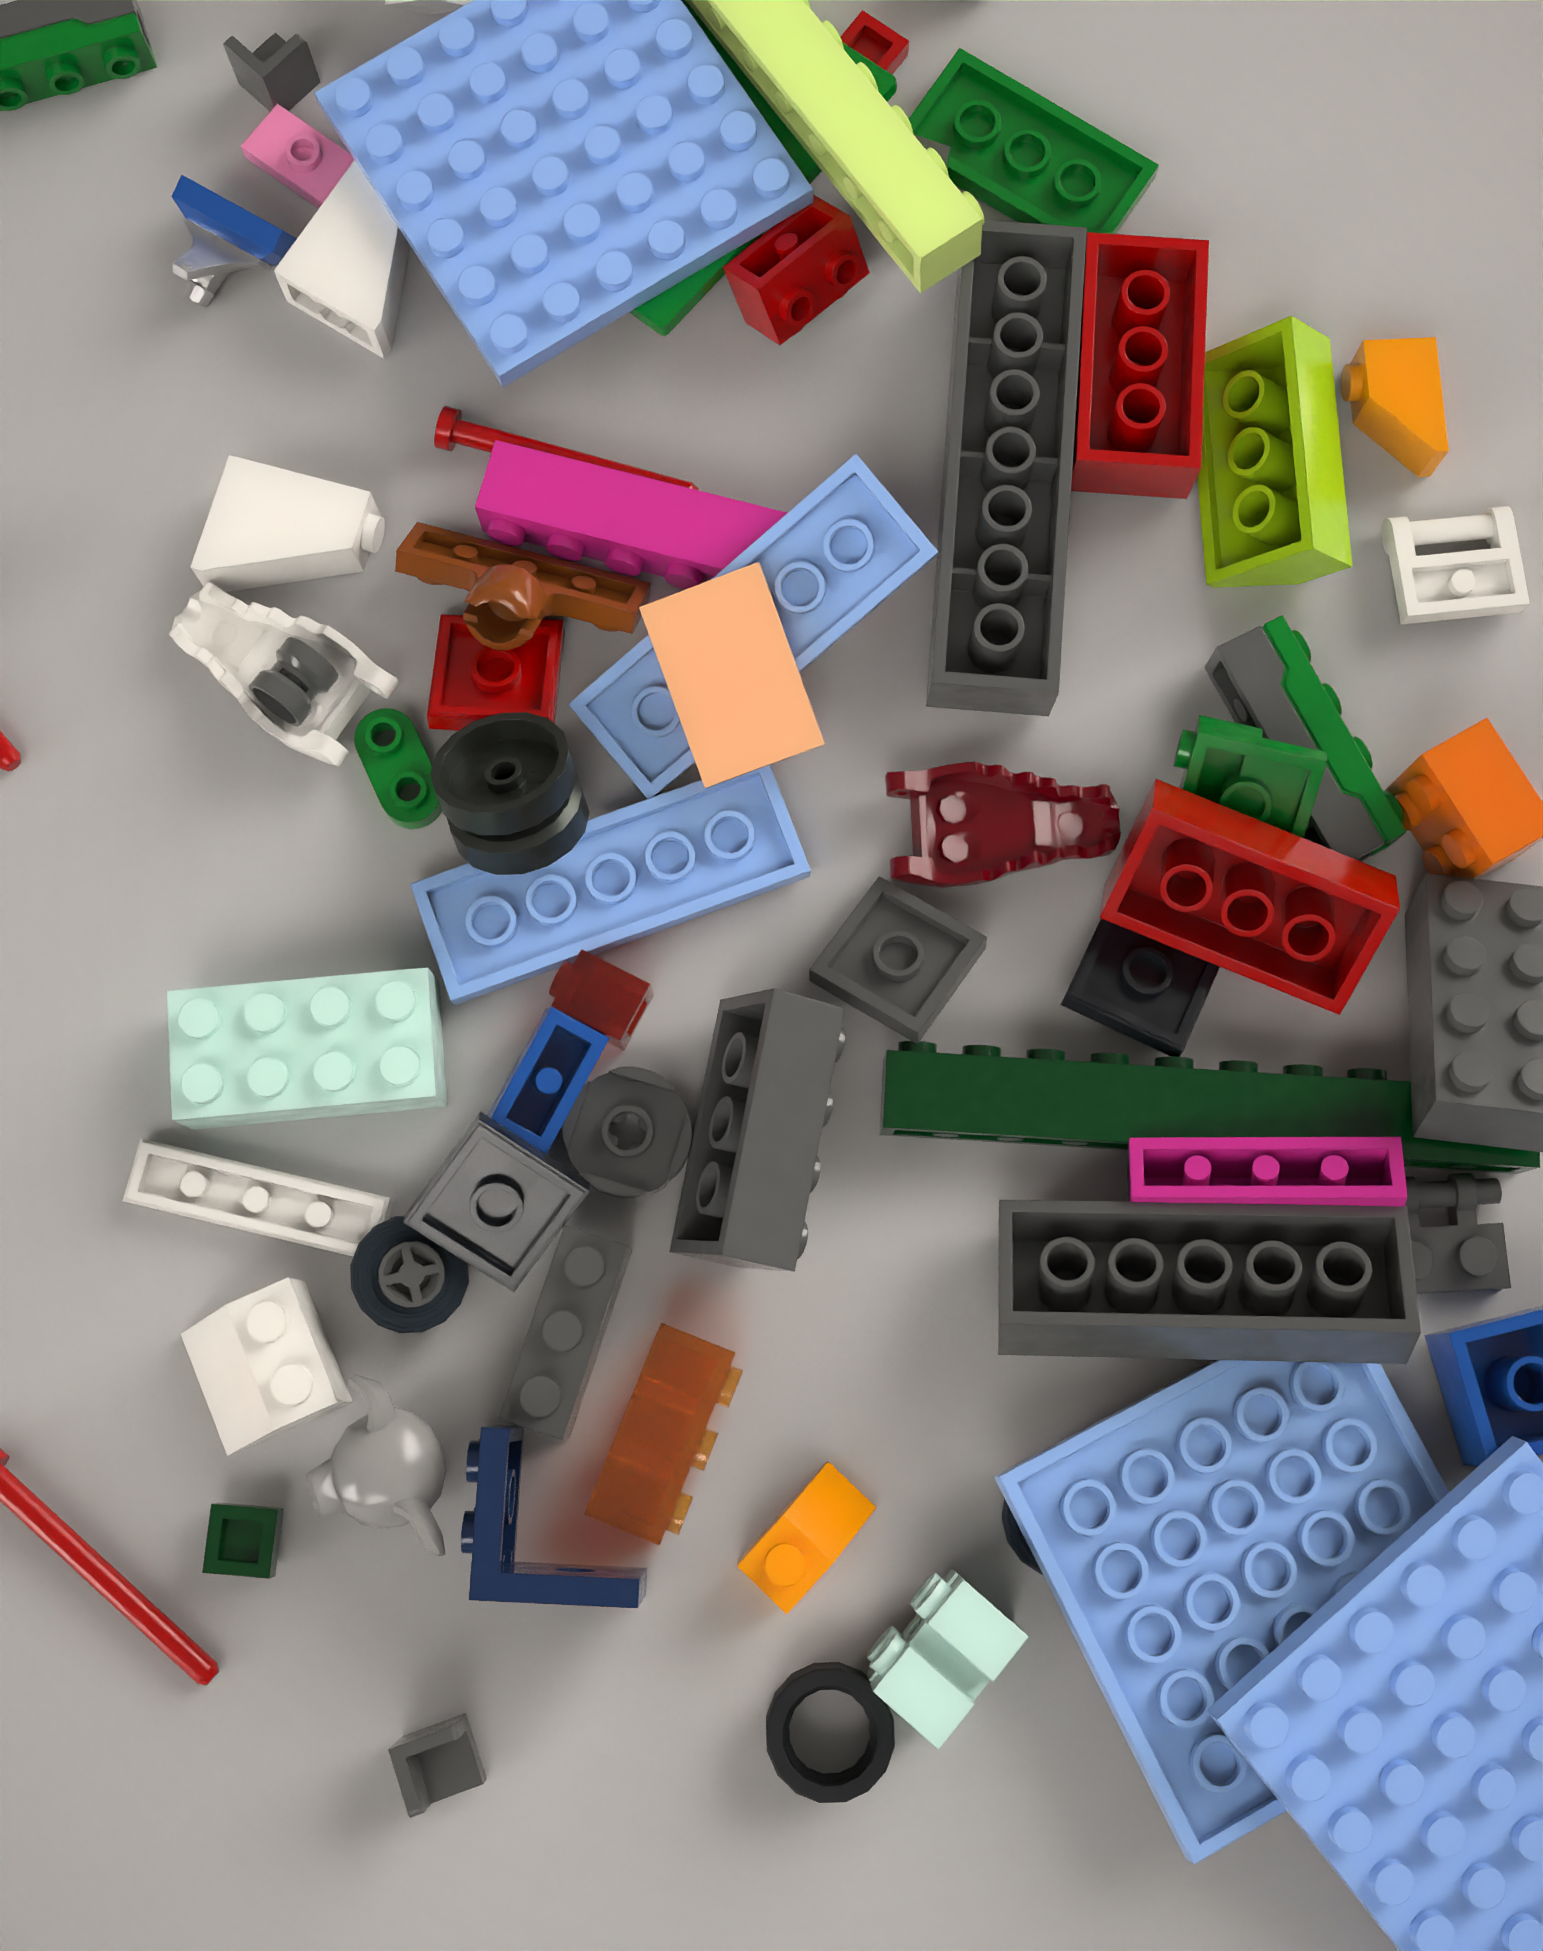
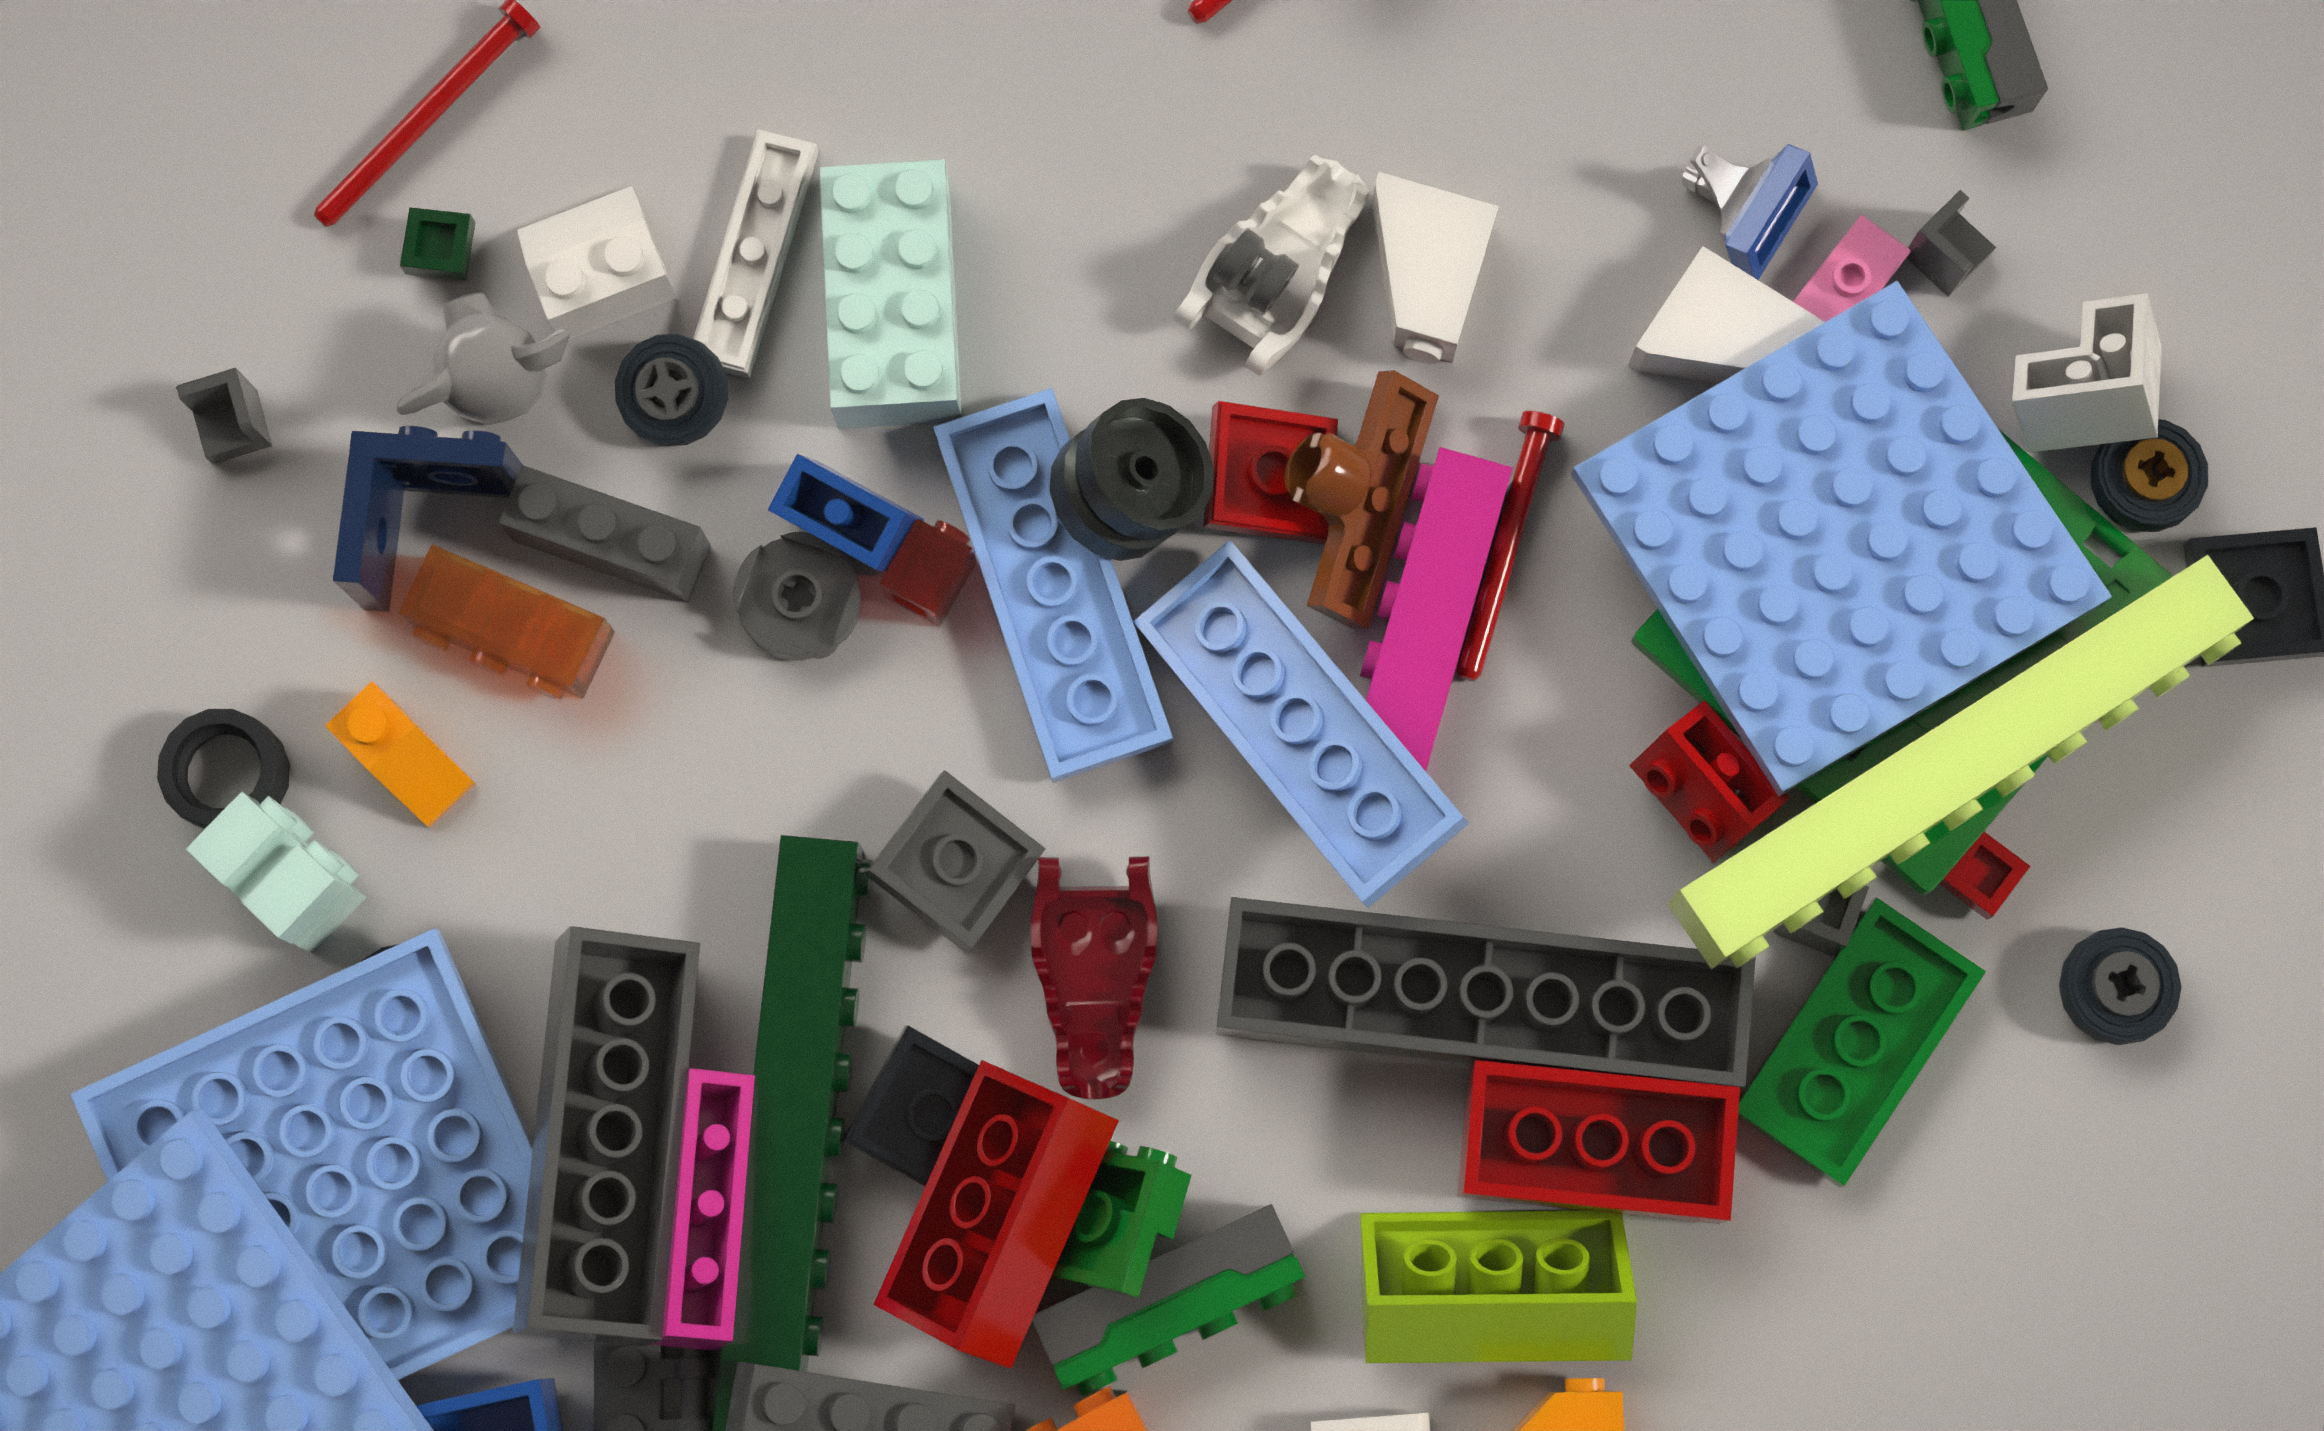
camera: 95 degrees right, 0 degrees up
(397, 766) = (1180, 380): green plate -> none
(497, 1202) = (726, 465): plate -> none
(732, 675) = (1244, 697): light nougat tile -> none
(759, 1131) = (778, 713): dark grey brick -> none

